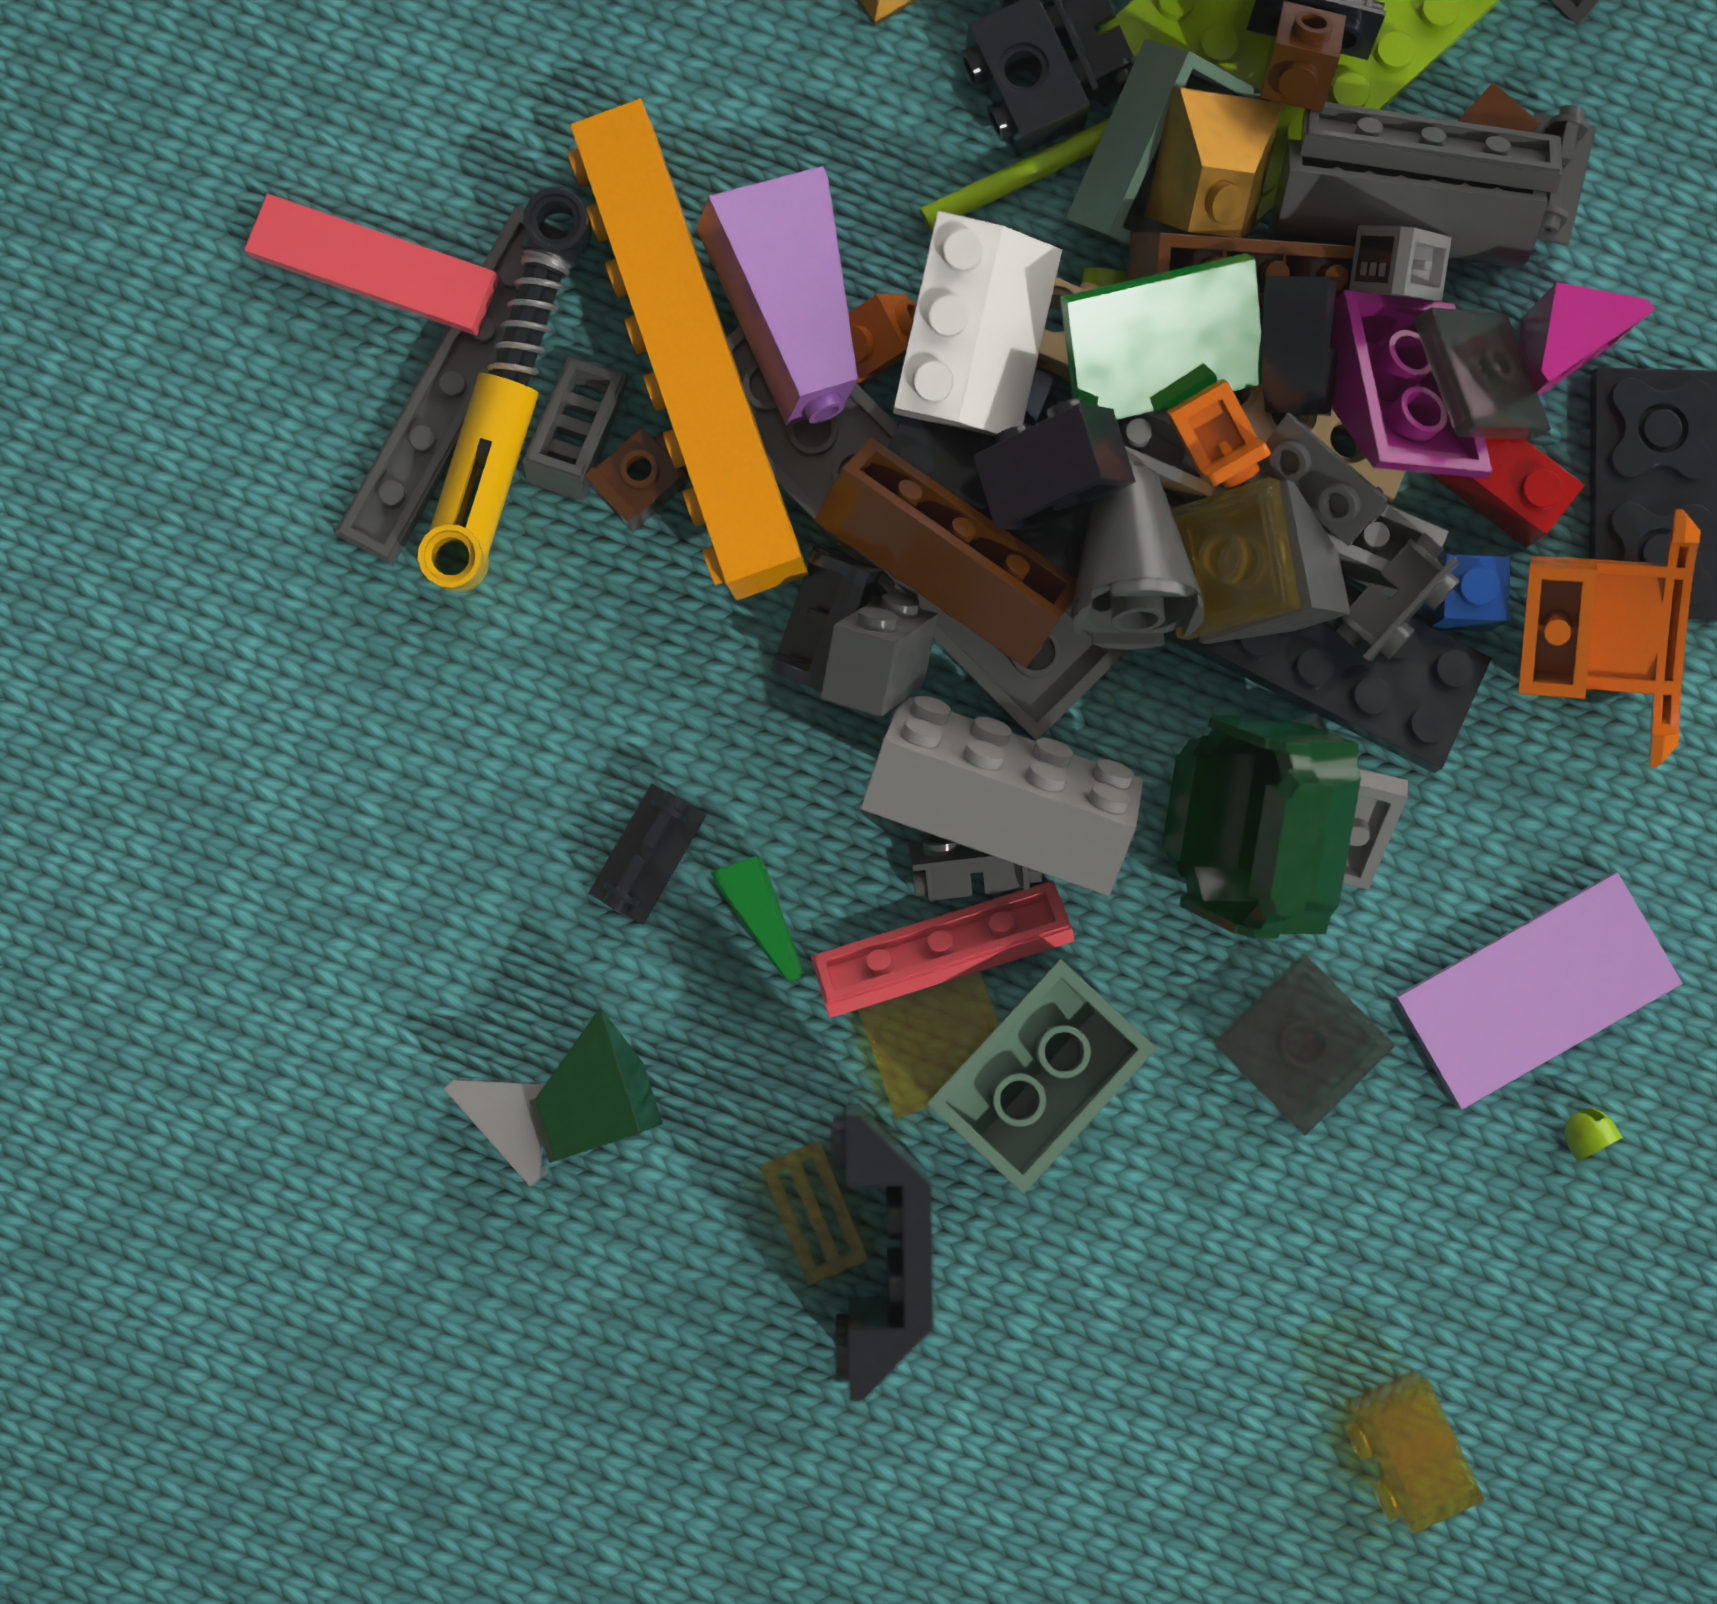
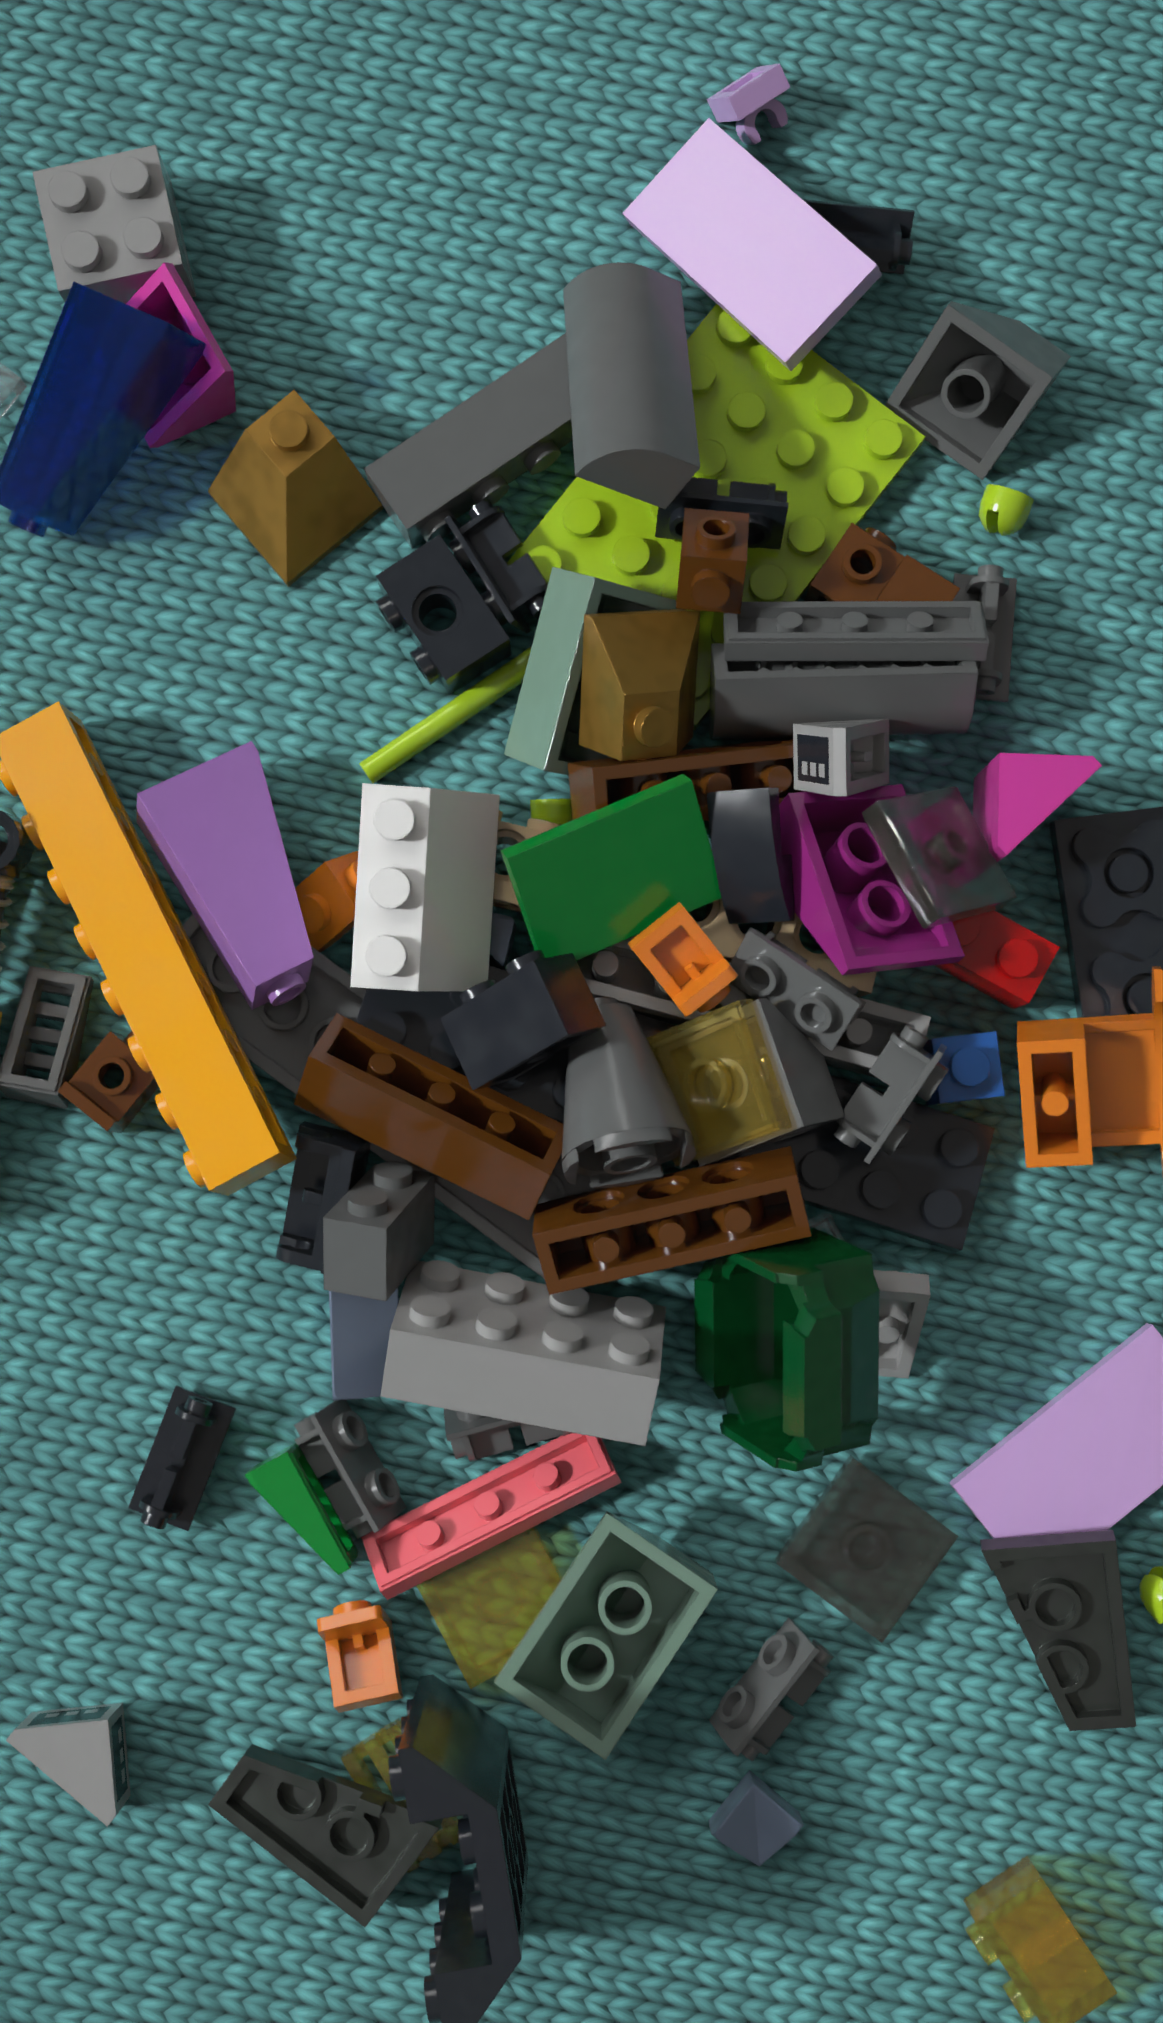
camera: 10 degrees left, 0 degrees up
(594, 1094) = (163, 1722): dark green slope -> none
(736, 1227) = (324, 1828): none -> pearl dark grey wing
(794, 1067) = (360, 1655): none -> orange bracket
(802, 859) = (367, 1490): none -> dark grey hinge
(842, 764) = (359, 1343): none -> sand blue slope
(1154, 1290) = (755, 1820): none -> sand blue slope
(1167, 686) = (670, 1220): none -> reddish brown brick
(1208, 1145) = (750, 1711): none -> dark grey hinge
(1441, 87) = (856, 567): none -> reddish brown brick
(1496, 1142) = (1073, 1617): none -> pearl dark grey wing
(1594, 55) = (1004, 509): none -> lime hinge

